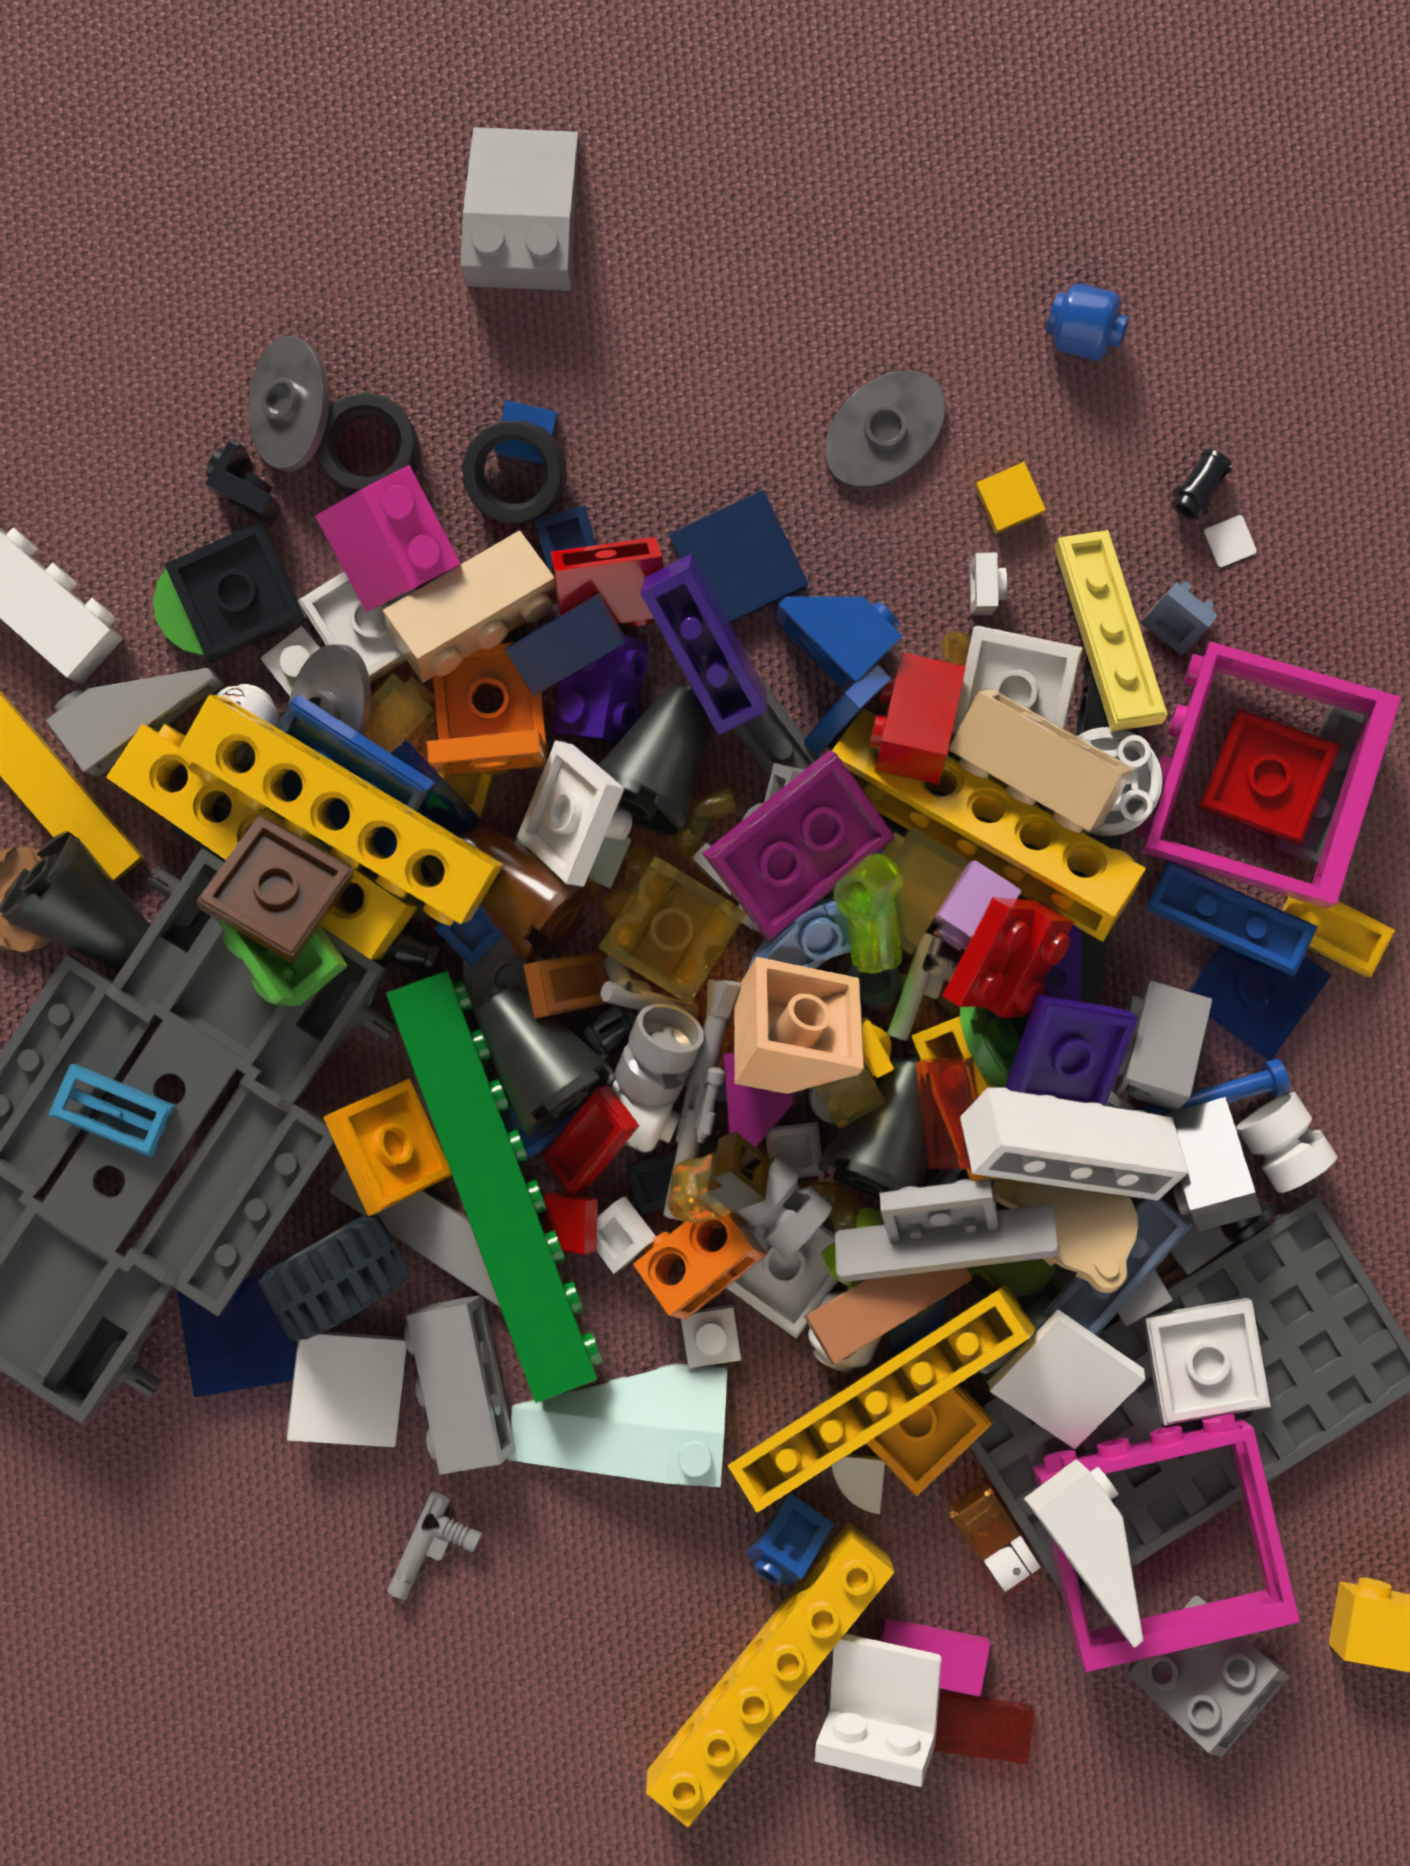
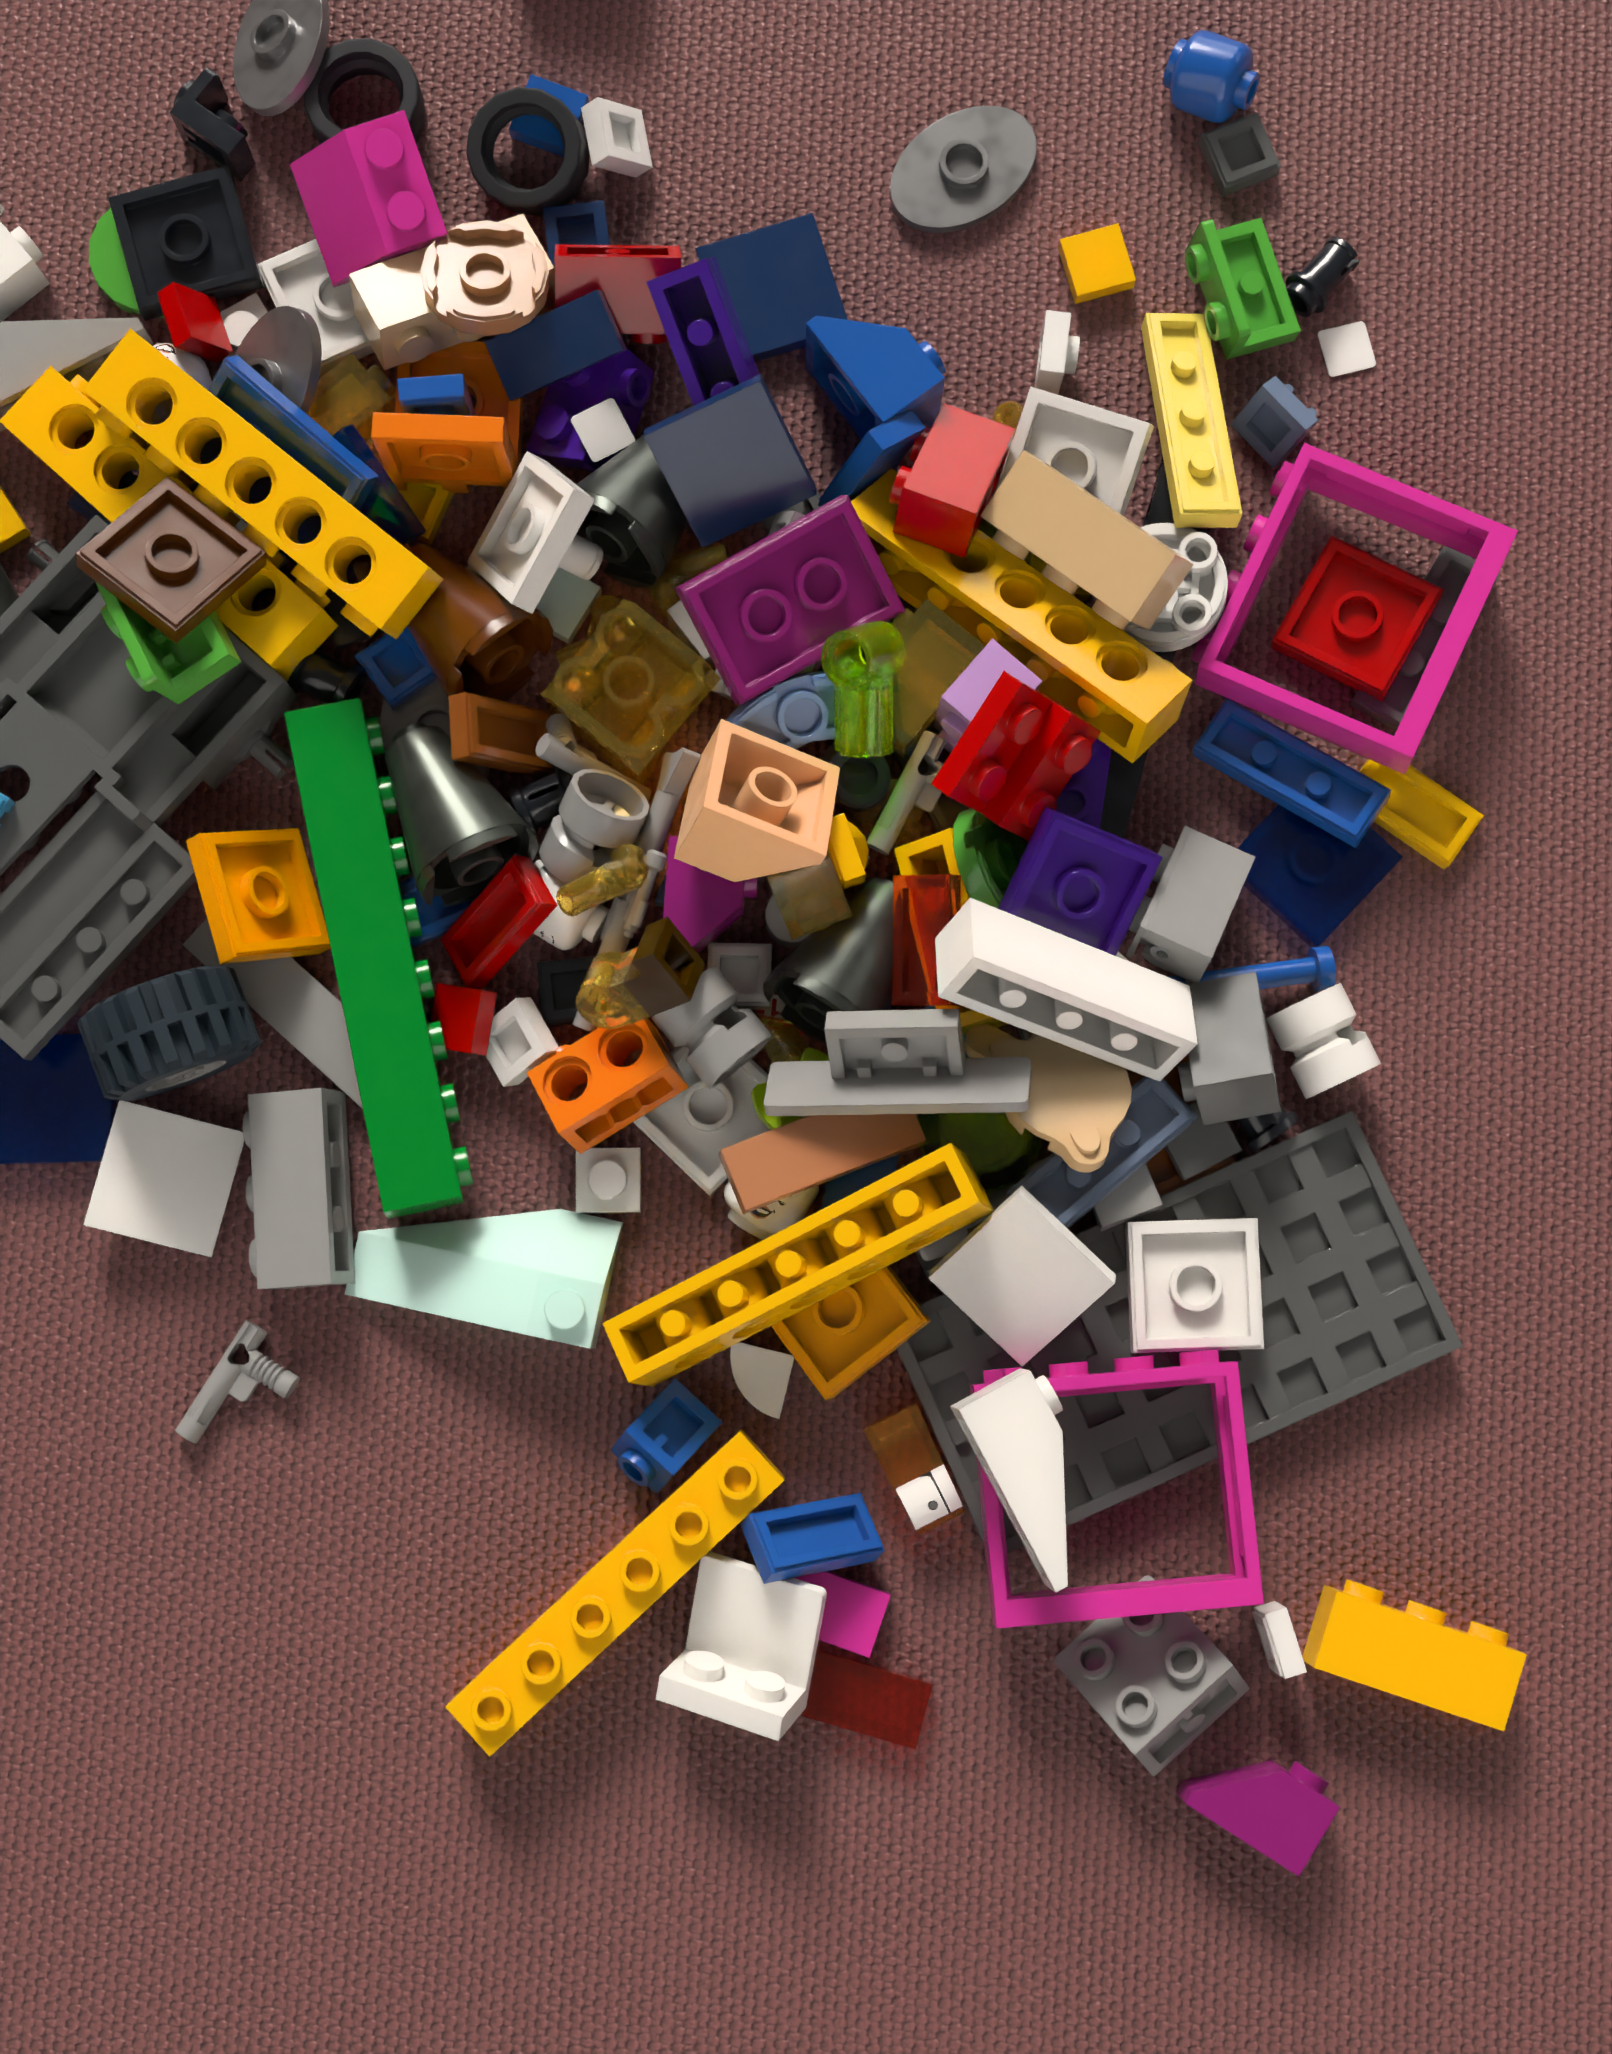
camera: 10 degrees right, 5 degrees down
(256, 665) = (194, 322): none -> red tile
(477, 718) = (435, 395): none -> blue tile
(499, 599) = (485, 278): none -> tile
(587, 447) = (616, 137): none -> white plate
(615, 710) = (602, 430): none -> white sticker
(676, 1106) = (619, 876): none -> clear yellow arm
(730, 731) = (730, 461): none -> dark blue tile
(922, 1611) = (812, 1537): none -> blue tile
(1118, 384) = (1239, 154): none -> dark grey tile
(1136, 504) = (1241, 287): none -> bright green bracket
(1312, 1639) = (1279, 1639): none -> white tile
(1316, 1772) = (1267, 1808): none -> magenta slope

